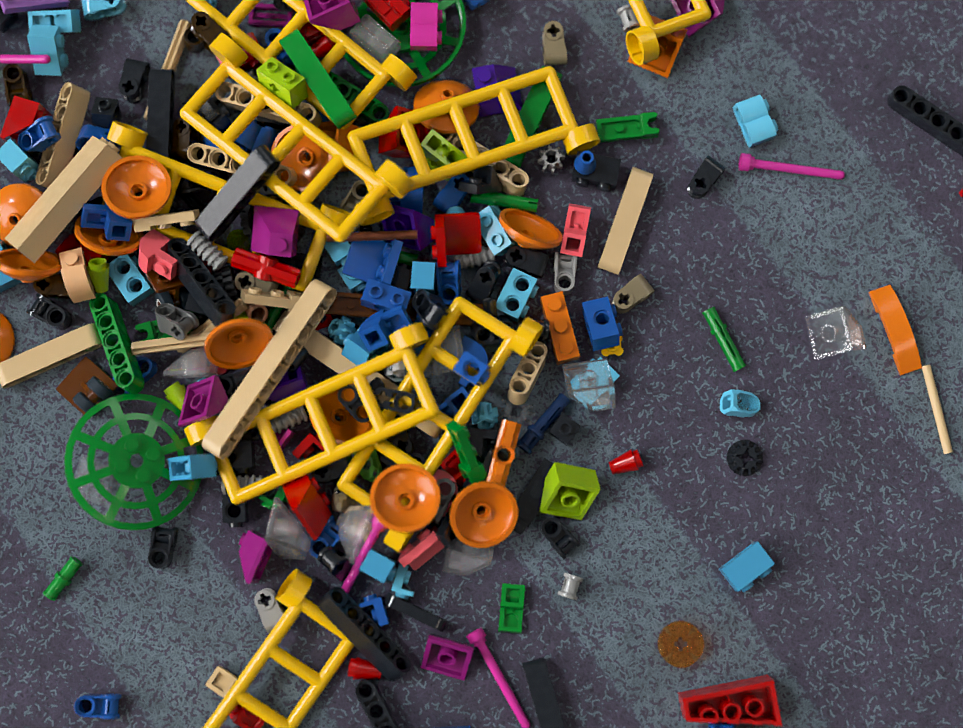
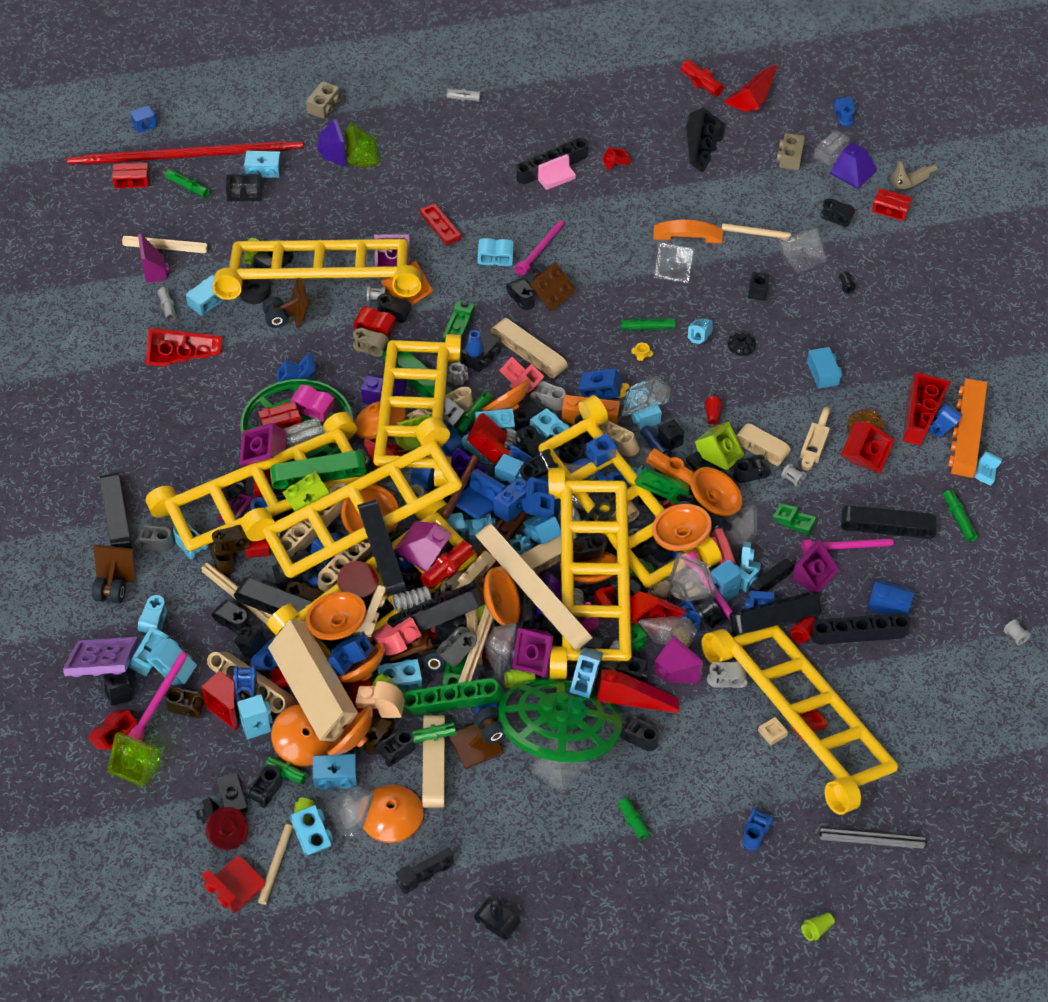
camera: 70 degrees left, 30 degrees down
(66, 344) = (434, 732): none -> green pin
(197, 186) = (357, 579): none -> dark red tile
(203, 515) = (625, 690): none -> red wedge
(425, 580) = (748, 554): none -> medium azure bracket
(584, 36) = (375, 321): none -> red brick
(599, 536) = (763, 443): none -> tan beam
(615, 49) = (397, 307): none -> black piece
(634, 594) = (816, 438): none -> tan piece
(635, 292) = (585, 360): dark tan piece -> none
(641, 657) = (867, 446): none -> red slope
(686, 348) = (642, 351): none -> yellow plate
(728, 203) = (550, 284): none -> reddish brown plate
(771, 39) = (440, 224): none -> red plate
(834, 450) = (758, 286): none -> black brick
(899, 547) = (848, 285): none -> black pin
(918, 135) = (555, 172): none -> bright pink panel
(926, 477) = (803, 250): none -> clear slope

